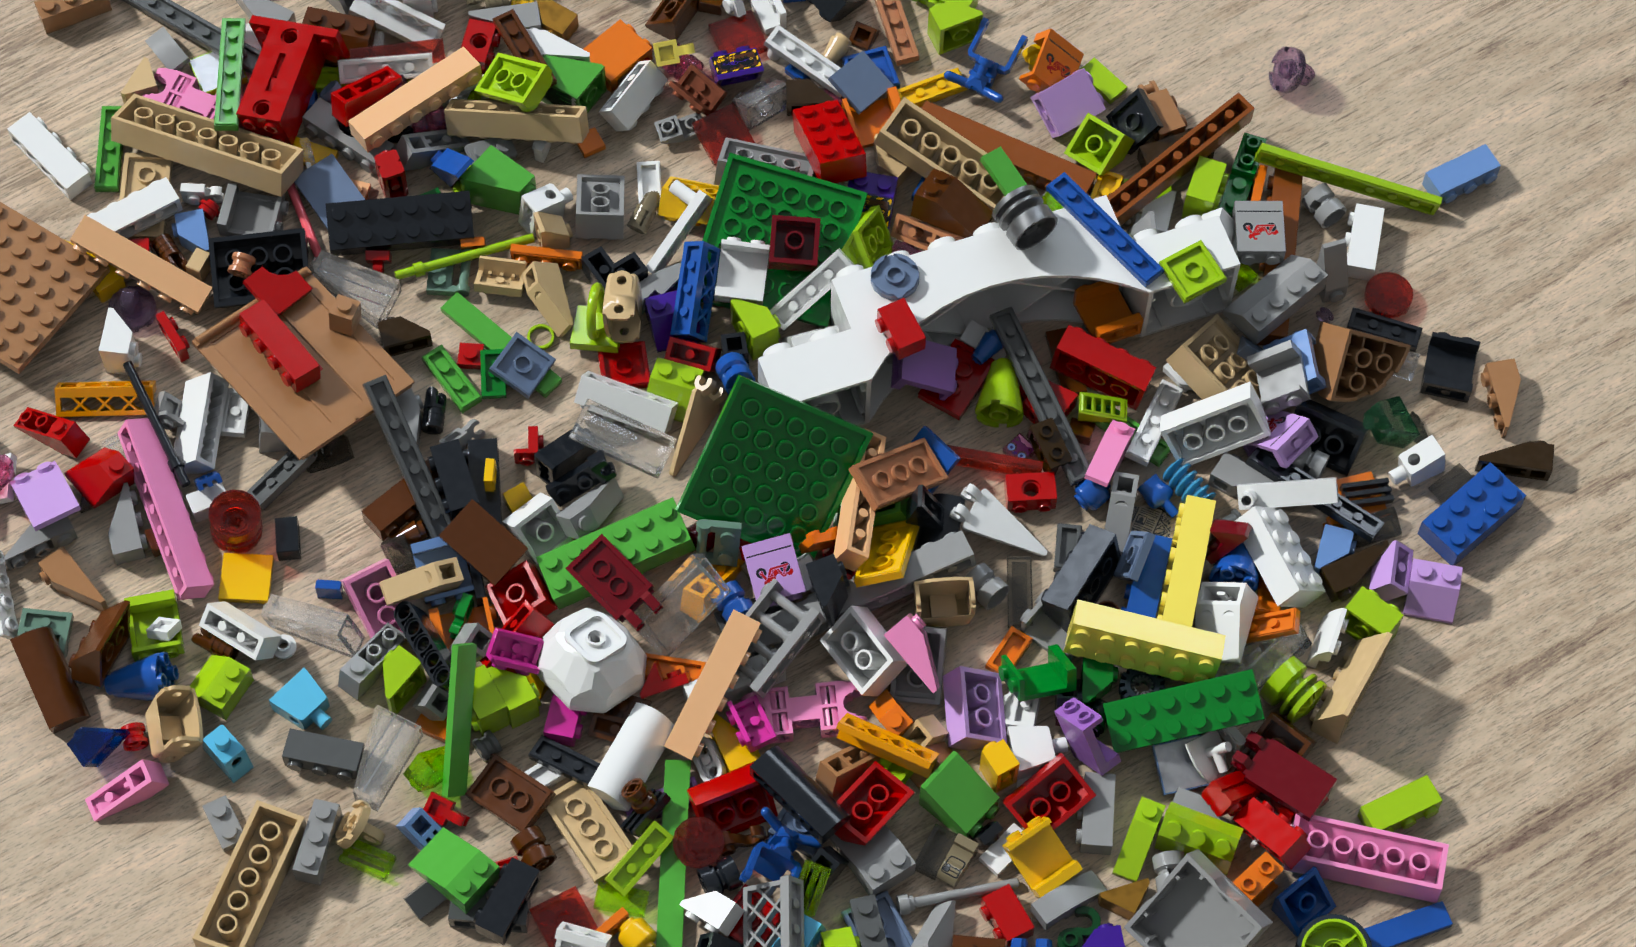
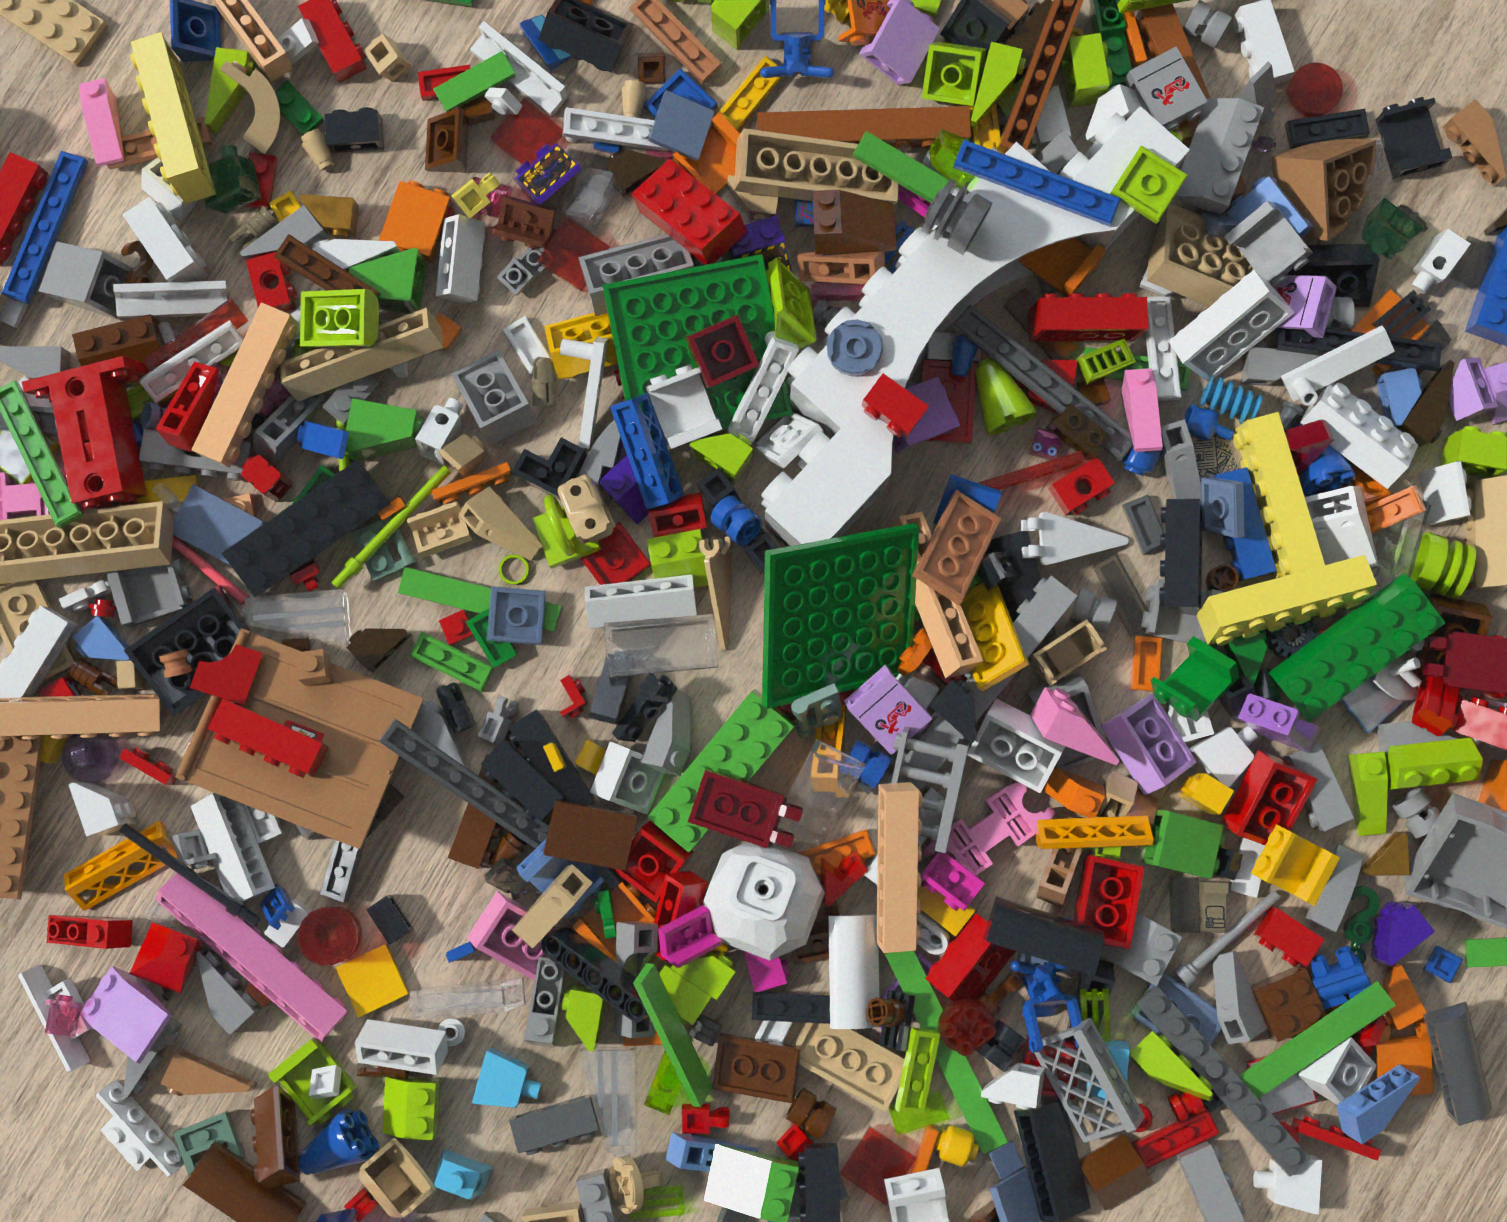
camera: 25 degrees left, 20 degrees up
(1125, 162) = (998, 76): none -> lime slope

